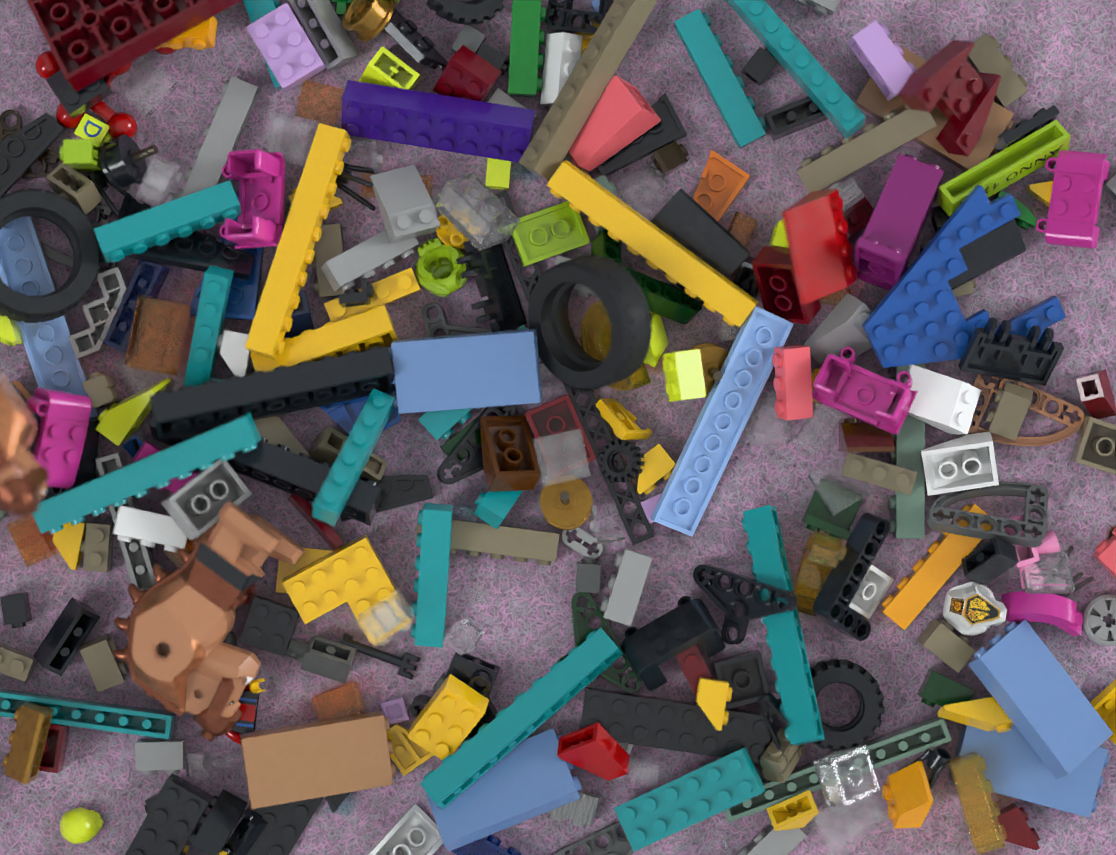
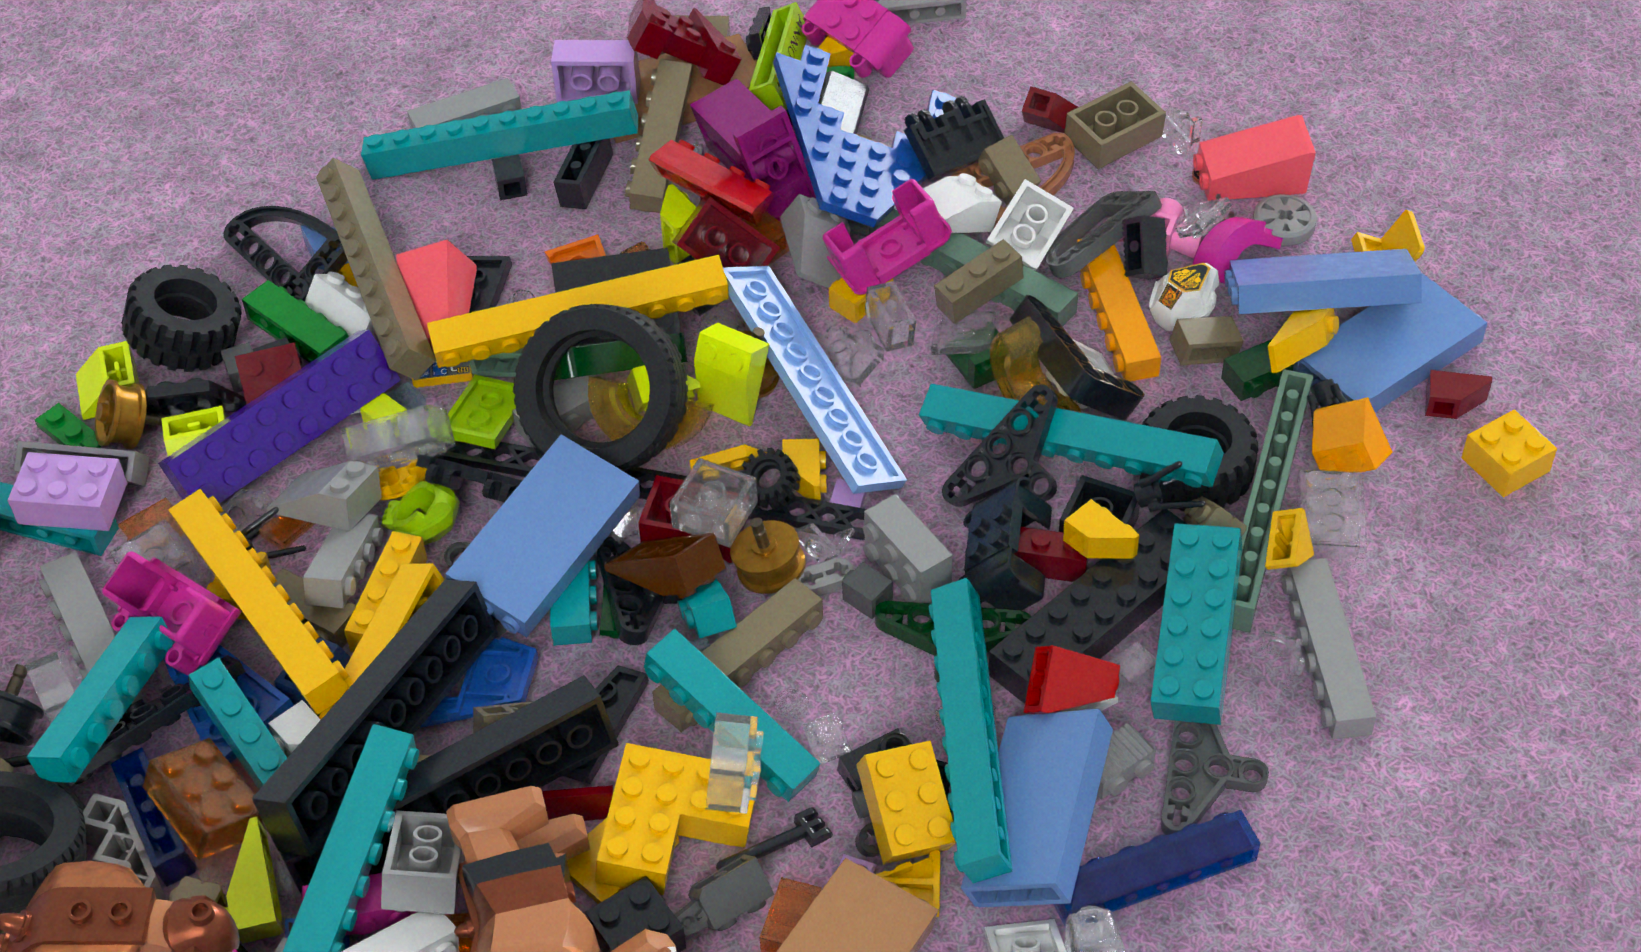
camera: 50 degrees left, 40 degrees down
(353, 457) = (527, 676): teal brick -> none
(355, 298) = (368, 583): black bracket -> none
(670, 158) = (514, 277): dark brown slope -> none
(719, 78) = (488, 210): teal brick -> none
(793, 382) = (825, 295): coral brick -> none
(846, 776) = (1281, 468): clear slope -> none
(863, 437) = (920, 291): reddish brown slope -> none
(977, 802) = (1401, 389): clear yellow brick -> none

